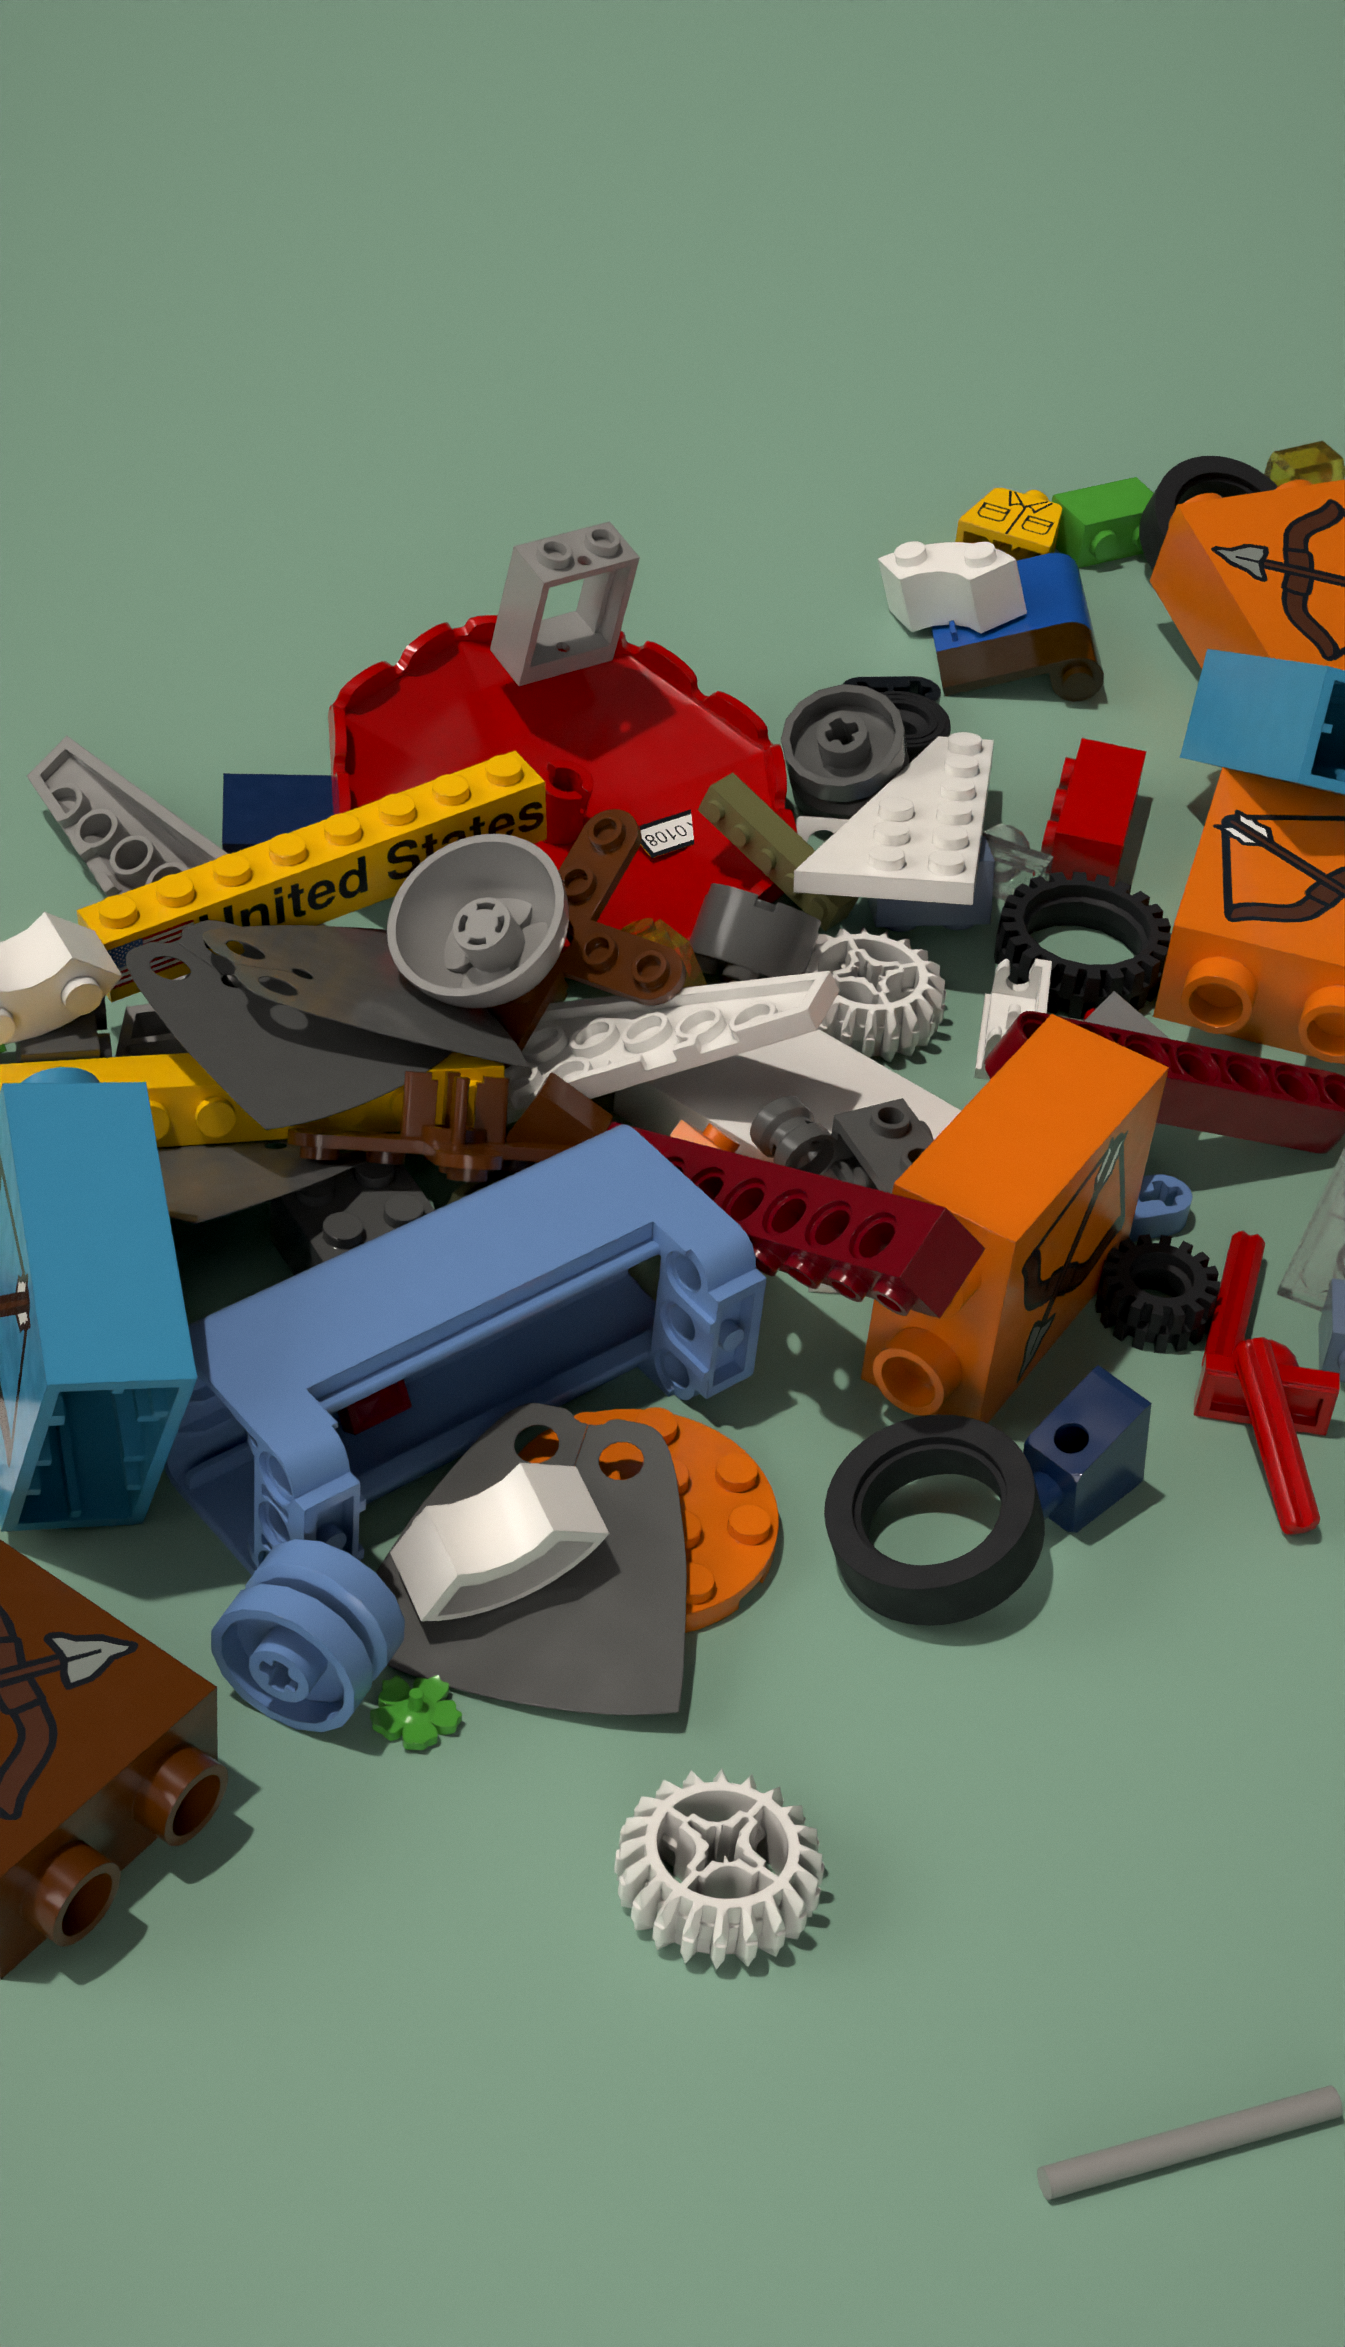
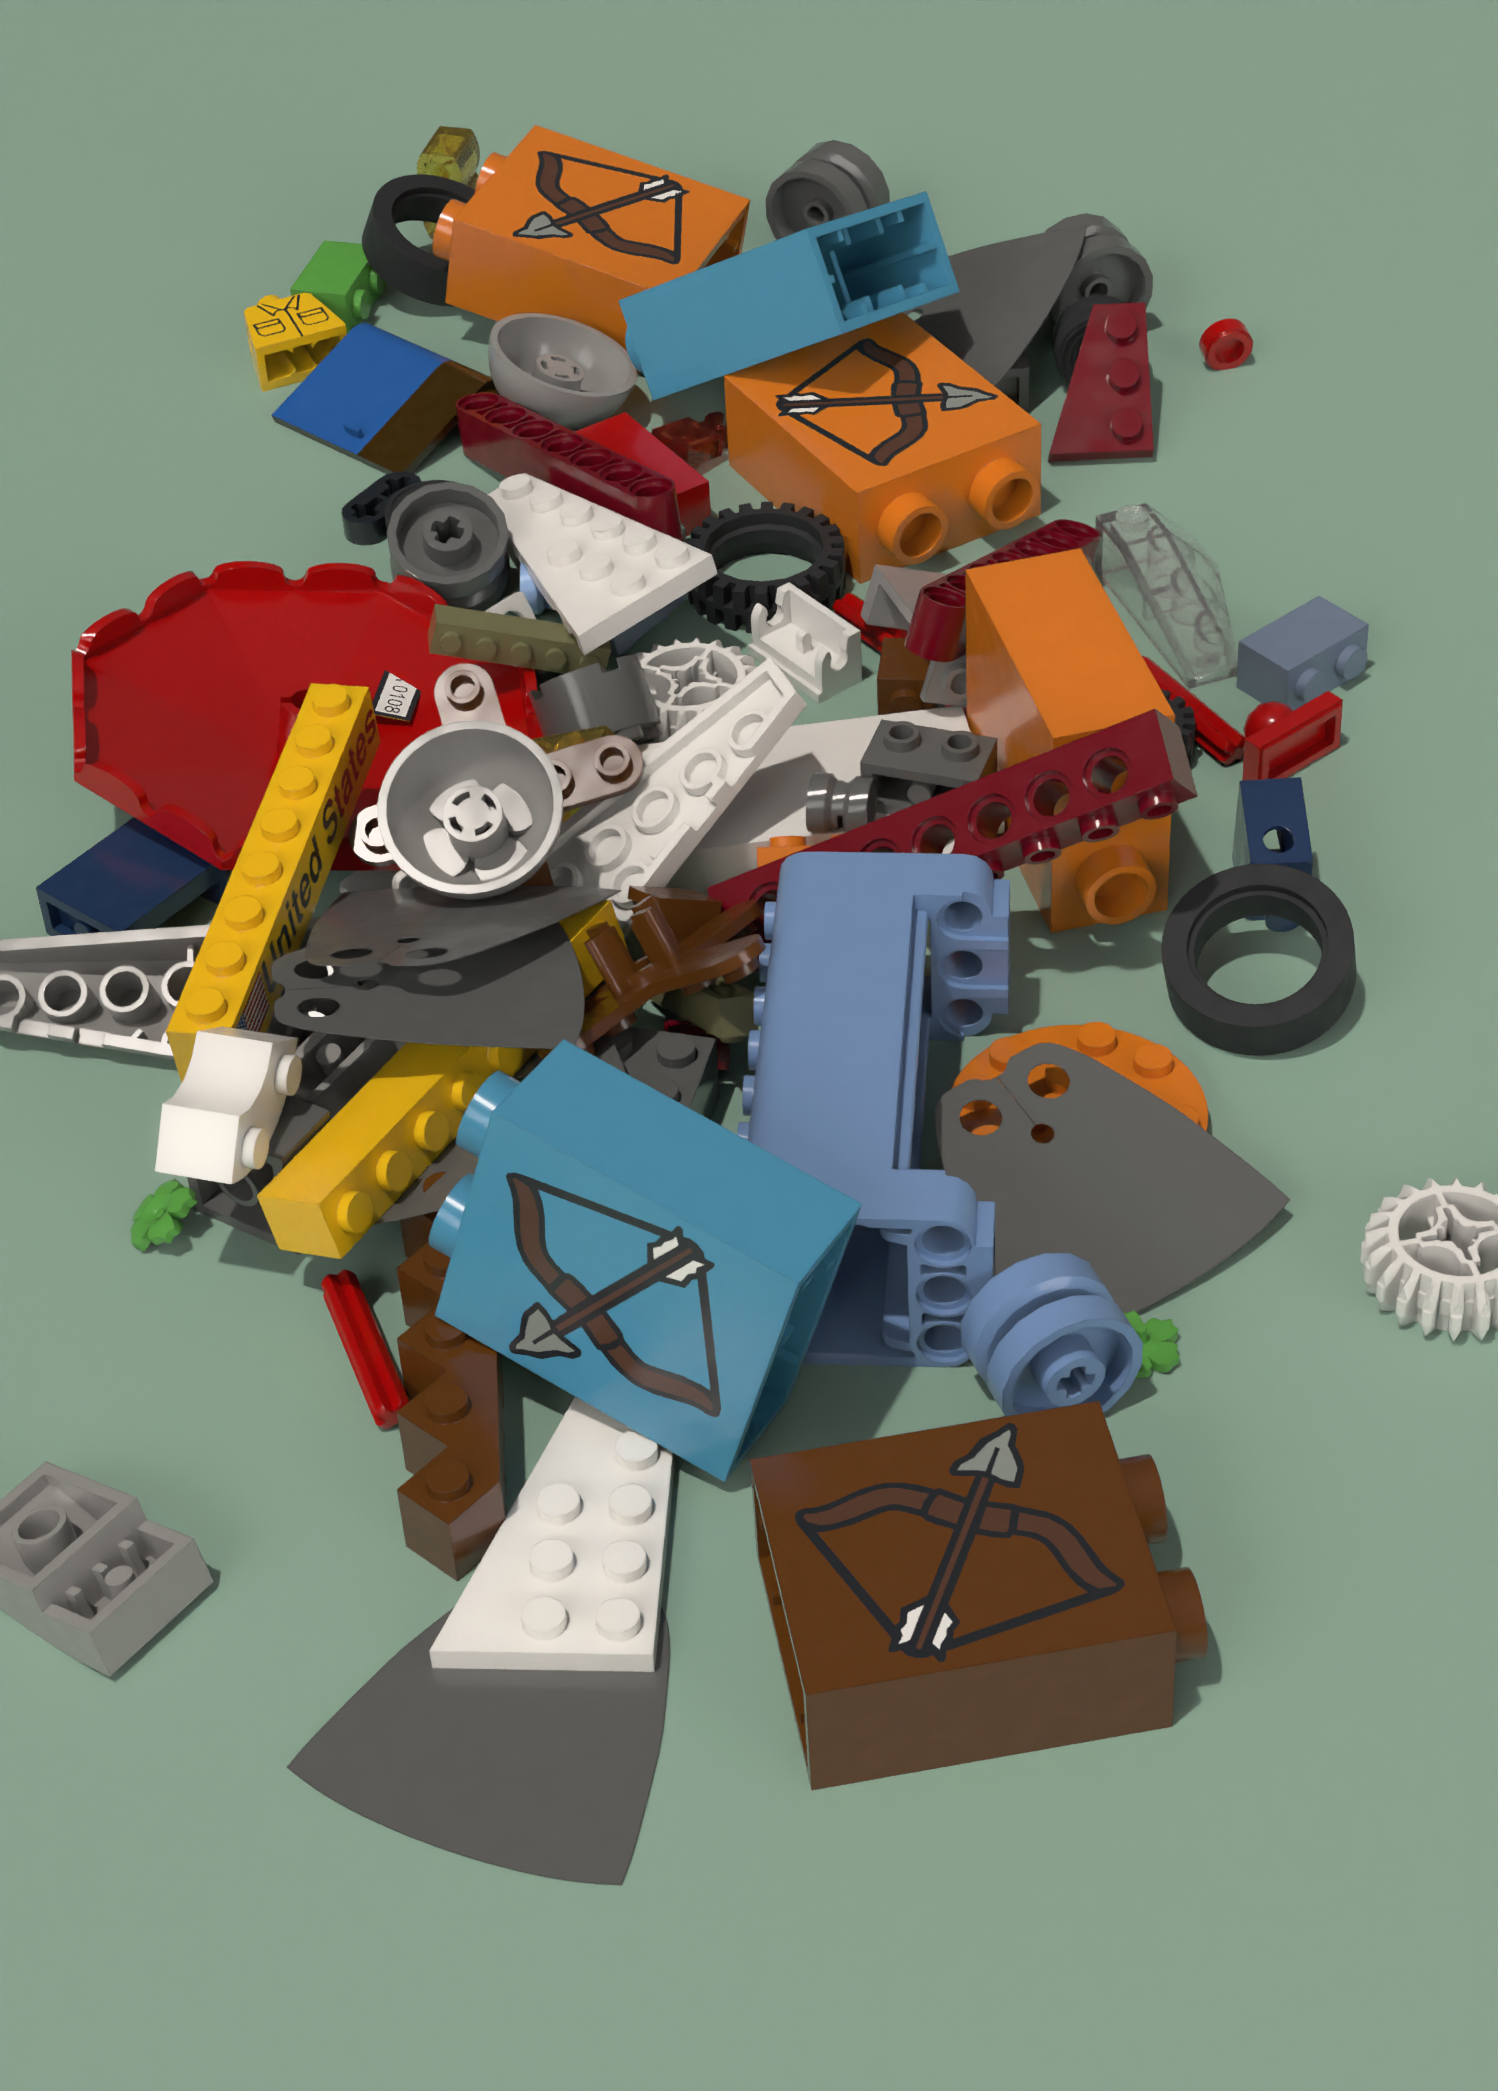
camera: 40 degrees left, 0 degrees up
(498, 1542) = (1066, 1181): white brick -> none
(591, 633) = (177, 562): light grey window -> none
(952, 582) = (323, 392): white brick -> none
(1030, 763) = (521, 441): none -> dark red beam
(1137, 680) = (559, 368): none -> light grey piece
(1177, 812) = (695, 440): none -> clear red plate
(1276, 1436) = (1346, 755): red axle -> none

